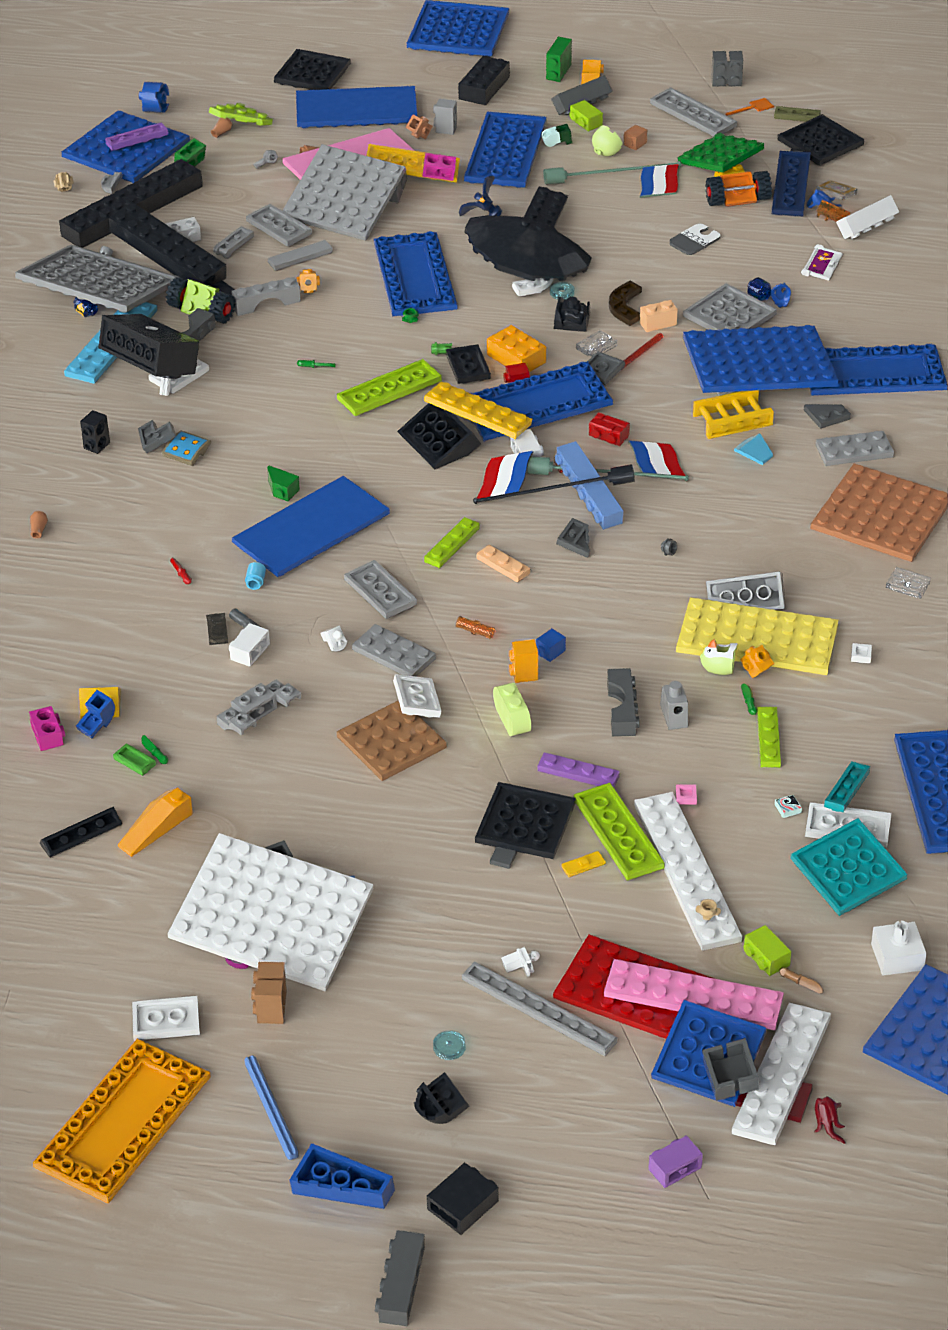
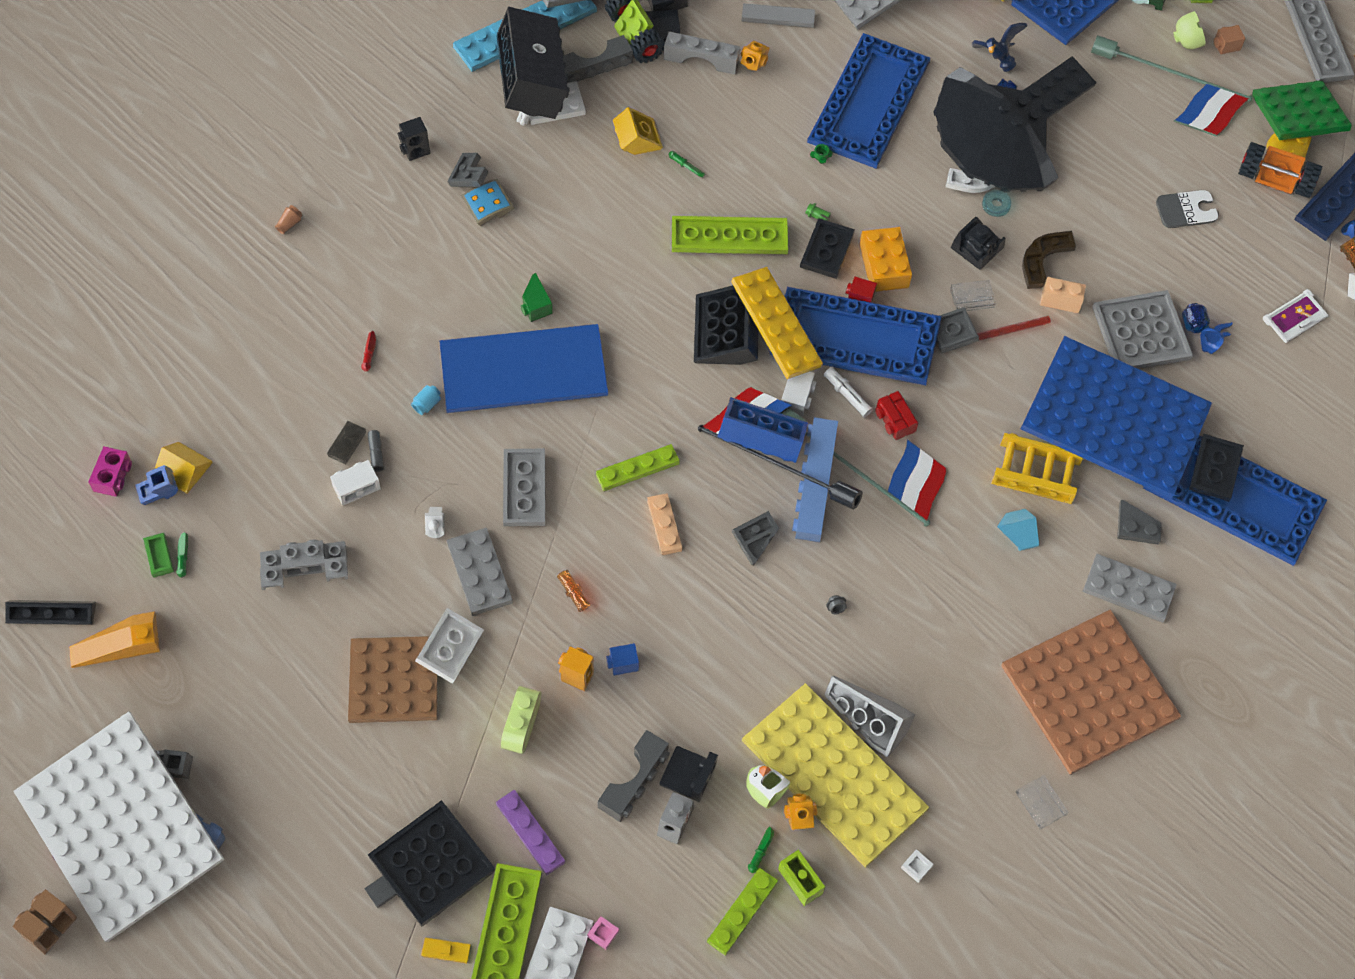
camera: 30 degrees right, 20 degrees up
(260, 360) = (636, 132): none -> yellow slope
(527, 472) = (763, 430): none -> blue slope
(557, 432) = (841, 385): none -> white pin
(652, 681) = (688, 773): none -> black bracket
(792, 693) = (801, 878): none -> lime brick
(850, 356) = (1216, 467): none -> black plate

